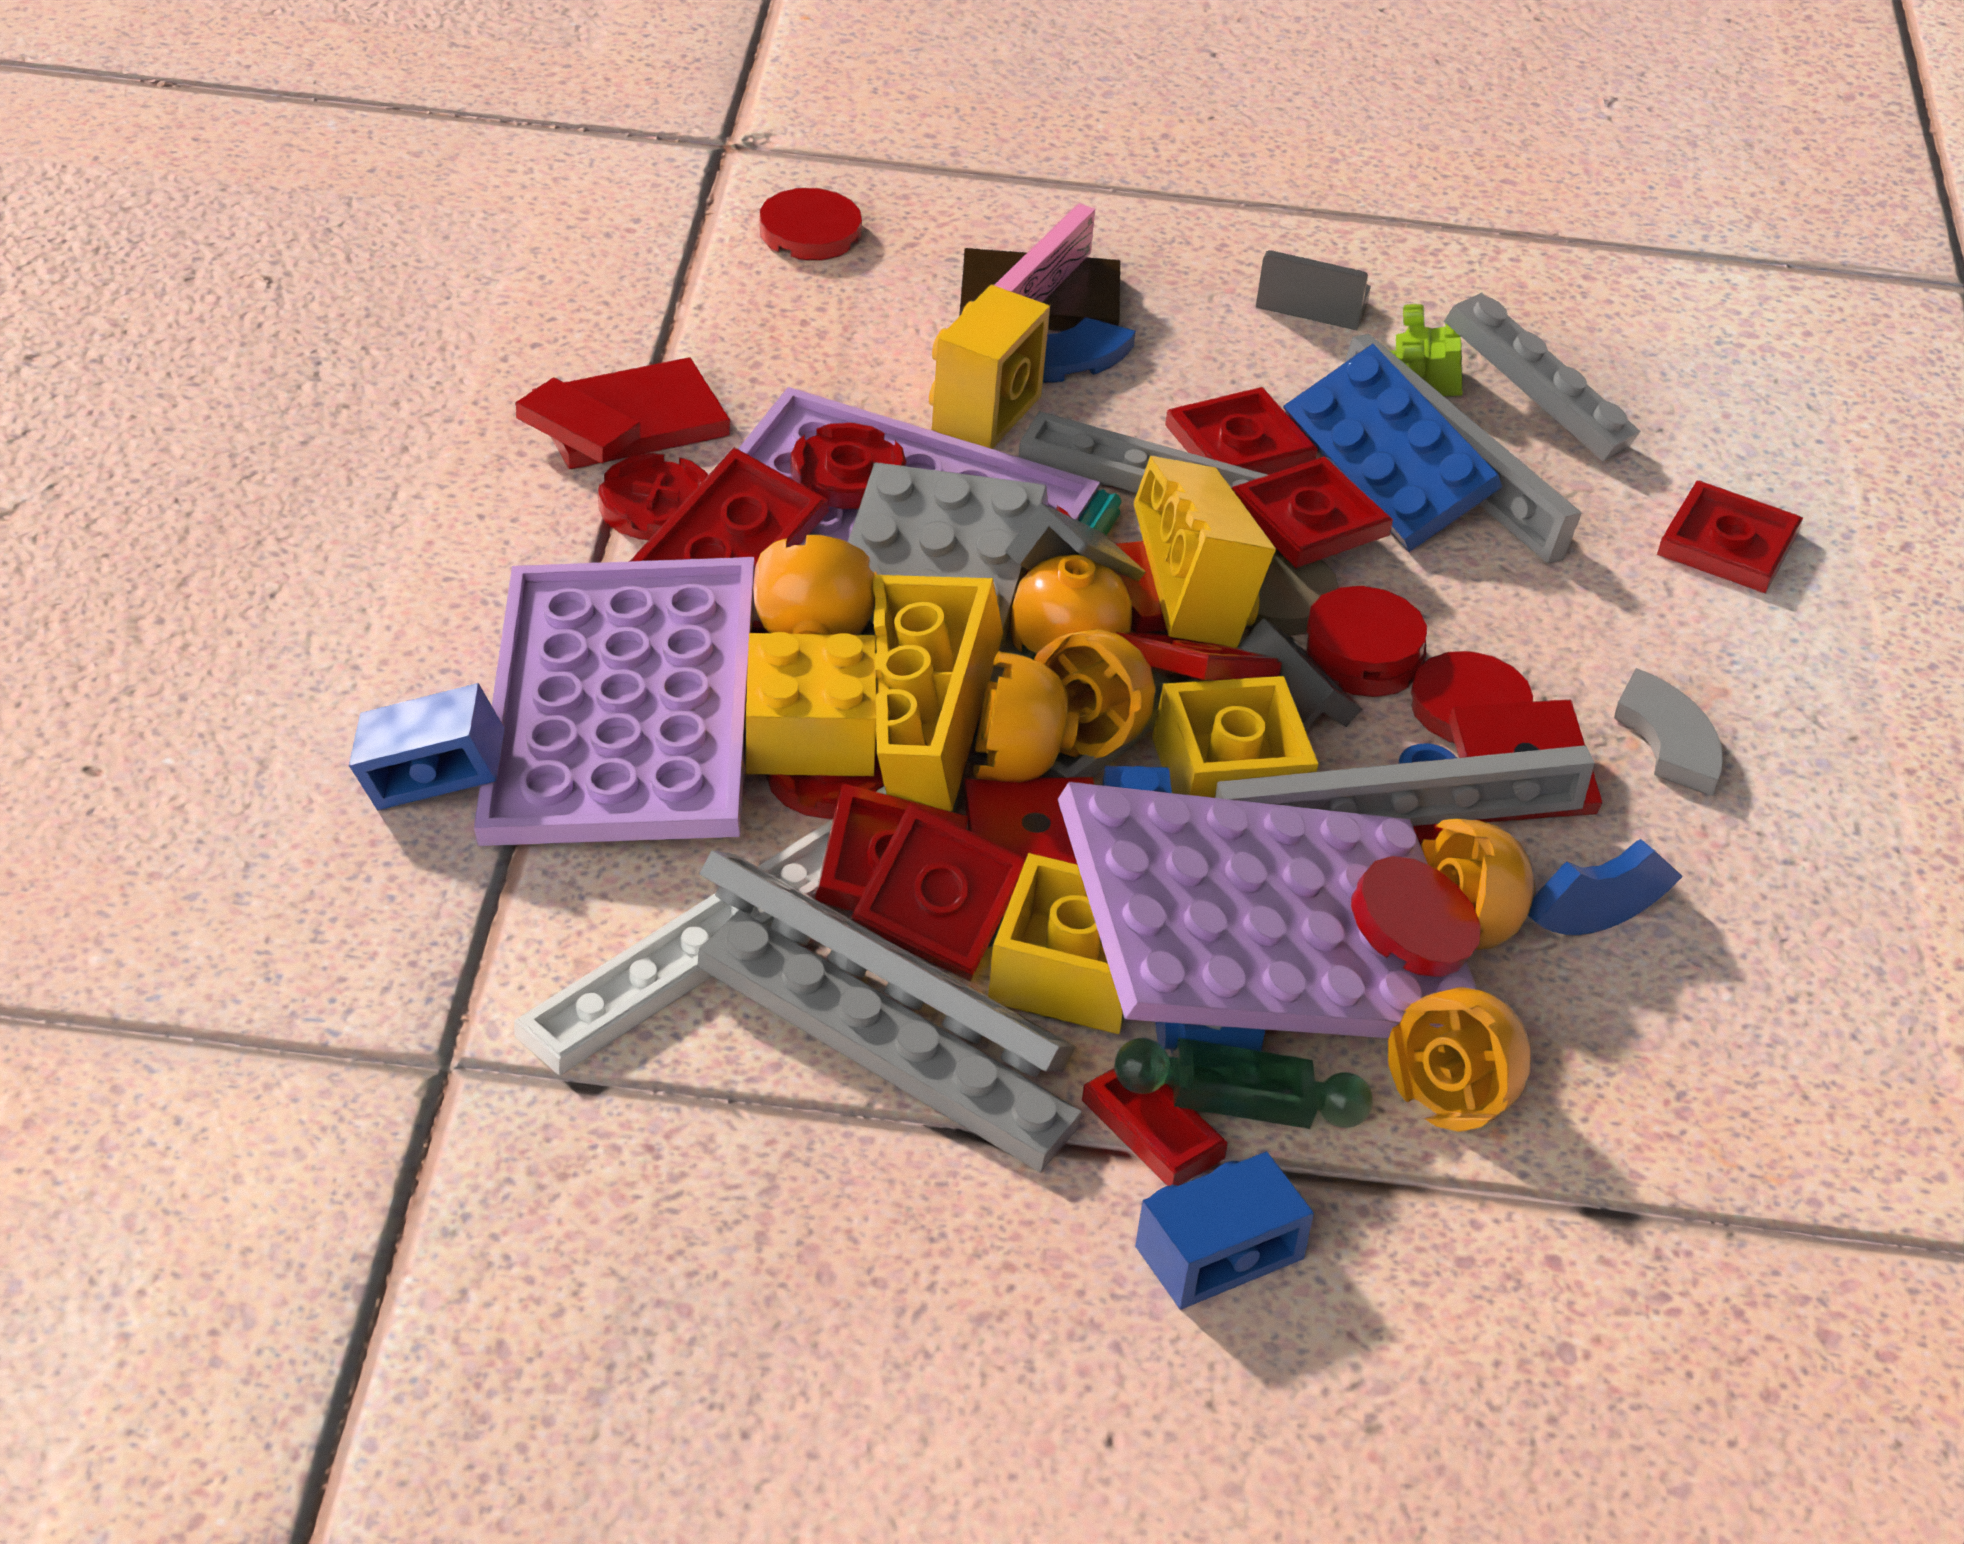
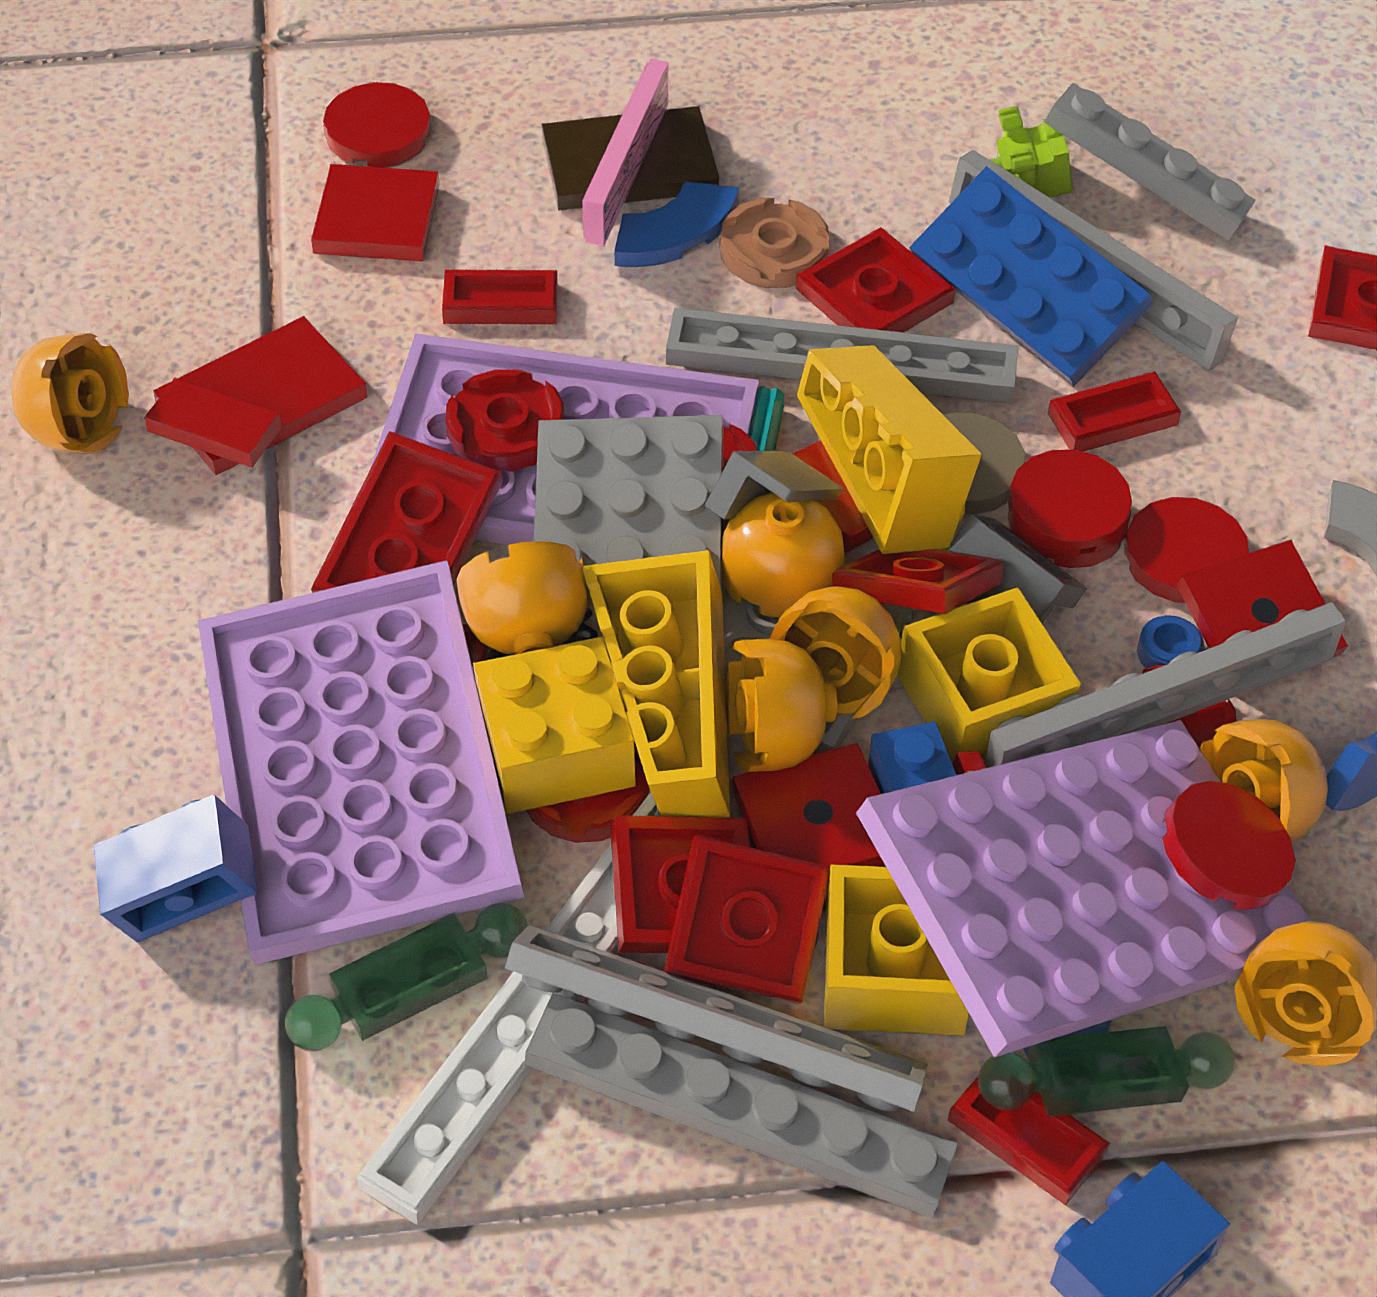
camera: 10 degrees left, 10 degrees up
(455, 371) = (70, 393): none -> light orange cylinder
(604, 879) = (404, 977): none -> clear green plate
(645, 492) = (309, 490): red tile -> none
(785, 291) = (375, 212): none -> red tile
(878, 378) = (500, 297): none -> red tile
(989, 366) = (613, 270): yellow brick -> none
(1149, 381) = (772, 241): none -> nougat tile
(1312, 290) = (898, 104): dark grey panel -> none
(1313, 511) = (978, 371): red tile -> none
(1441, 576) = (1114, 412): none -> red tile

